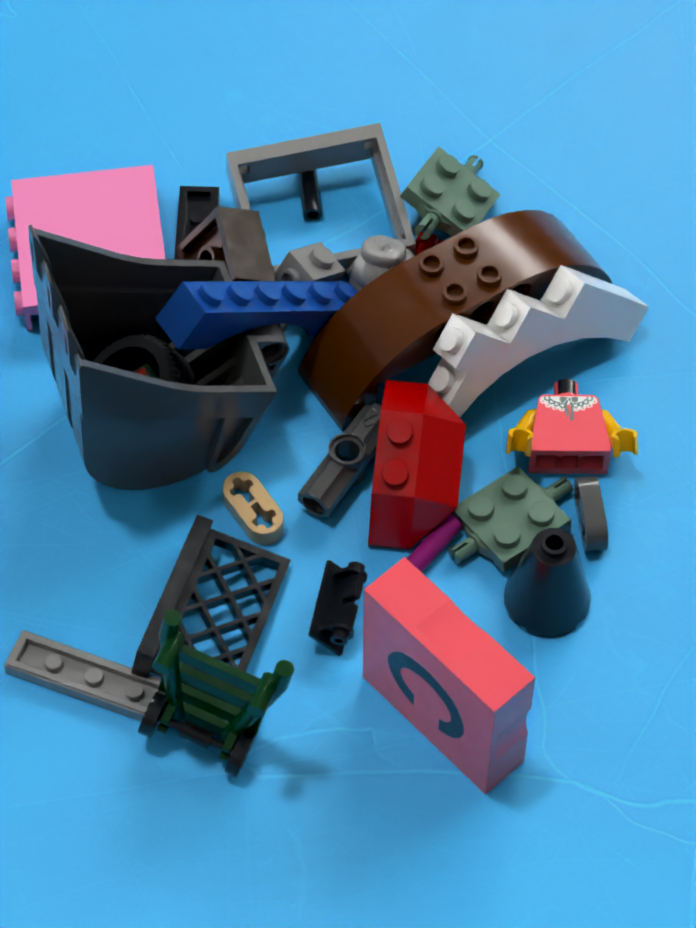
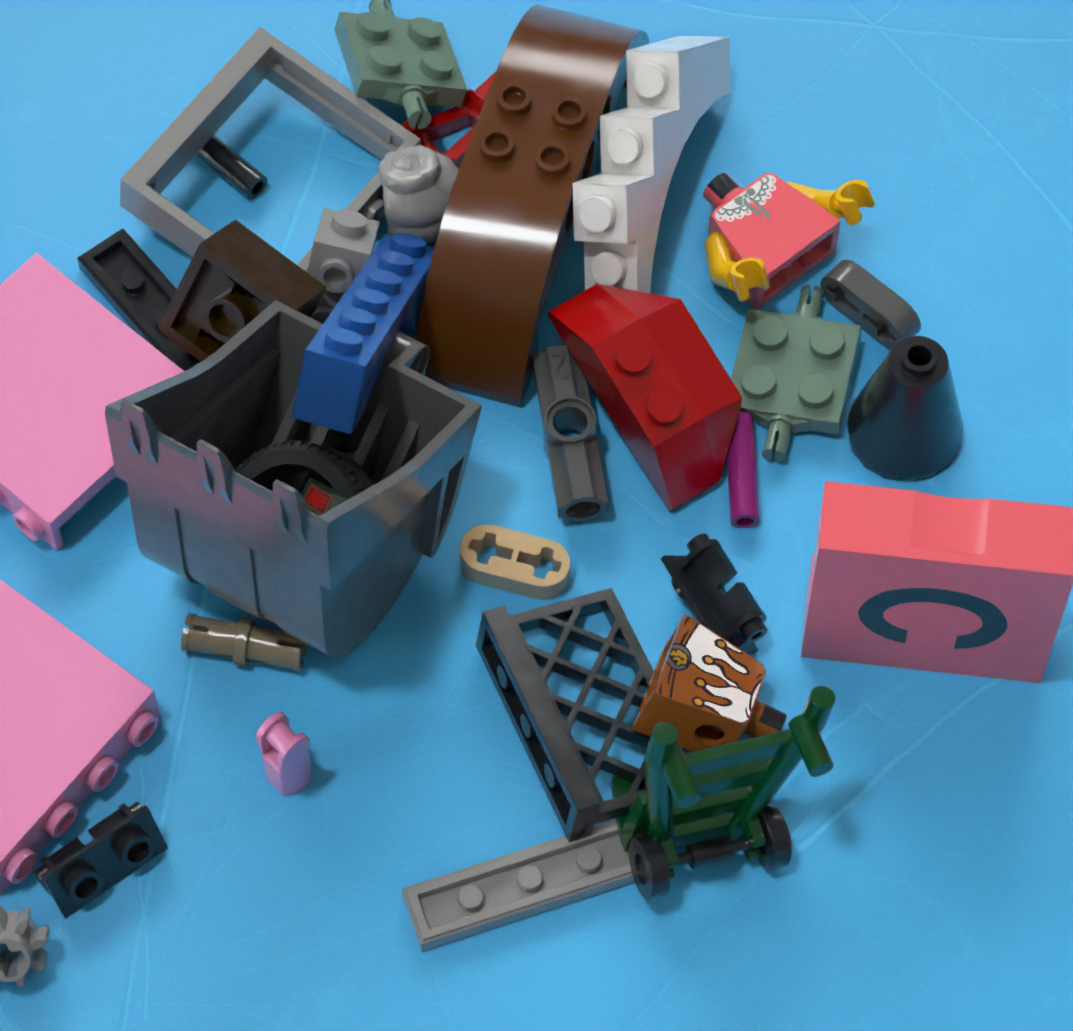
camera: 40 degrees left, 5 degrees up
(25, 511) = (284, 755): none -> bright pink bar
(63, 438) = (242, 642): none -> dark tan pin
(272, 635) = (706, 691): none -> torso

